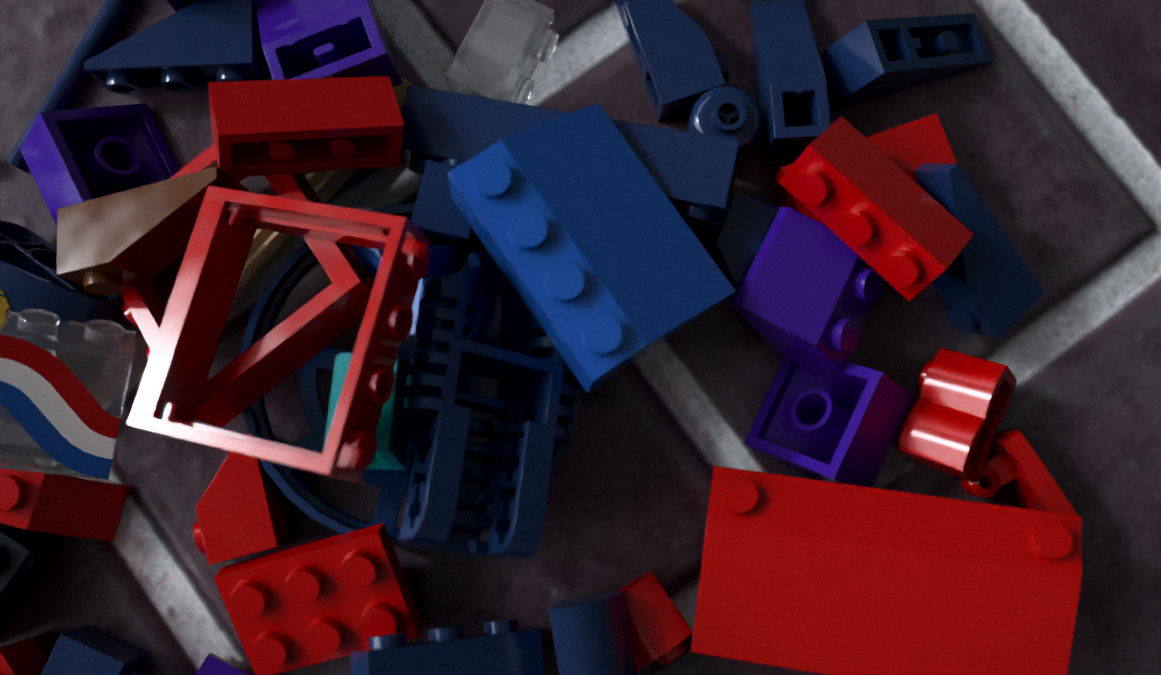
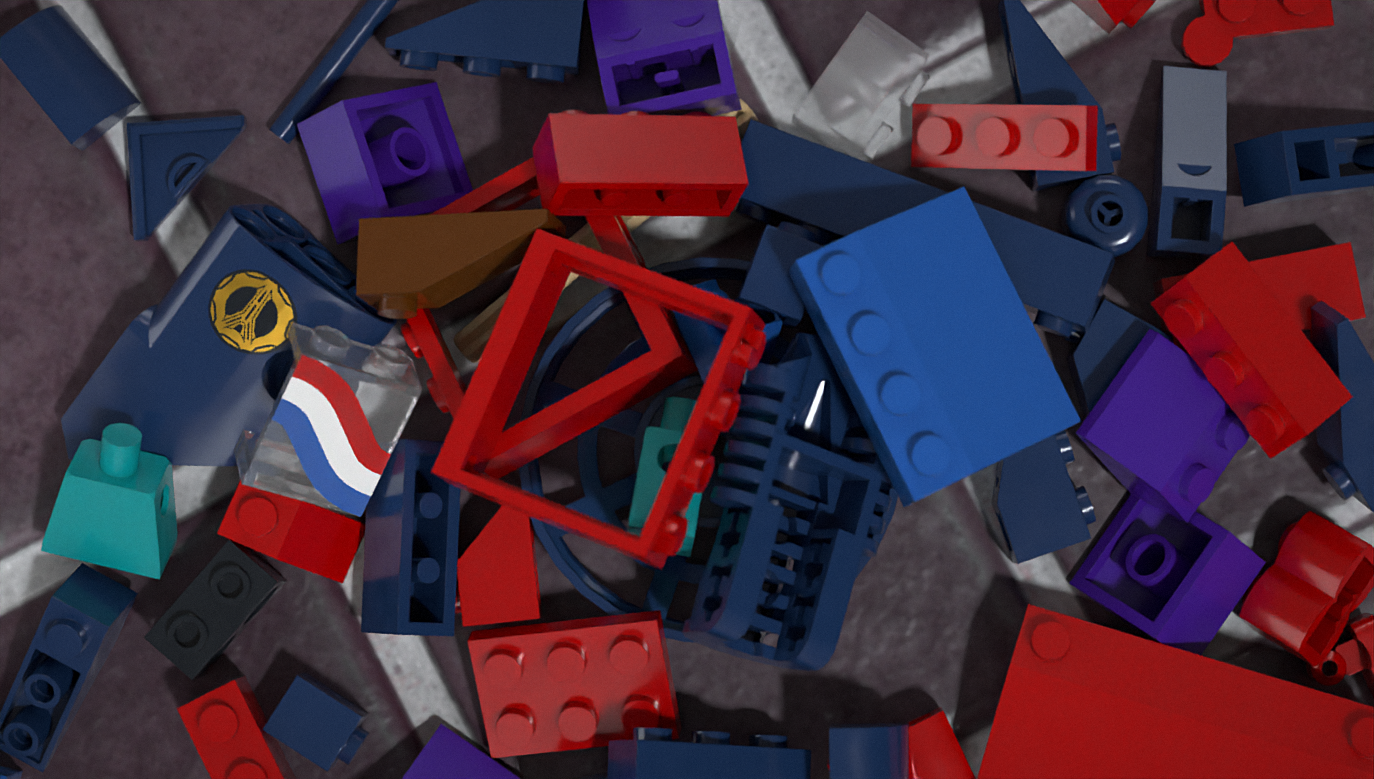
camera: 20 degrees right, 5 degrees up
(155, 504) = (411, 546): none -> dark blue brick
(630, 66) = (1004, 136): none -> red plate
(706, 374) = (1038, 501): none -> dark blue slope

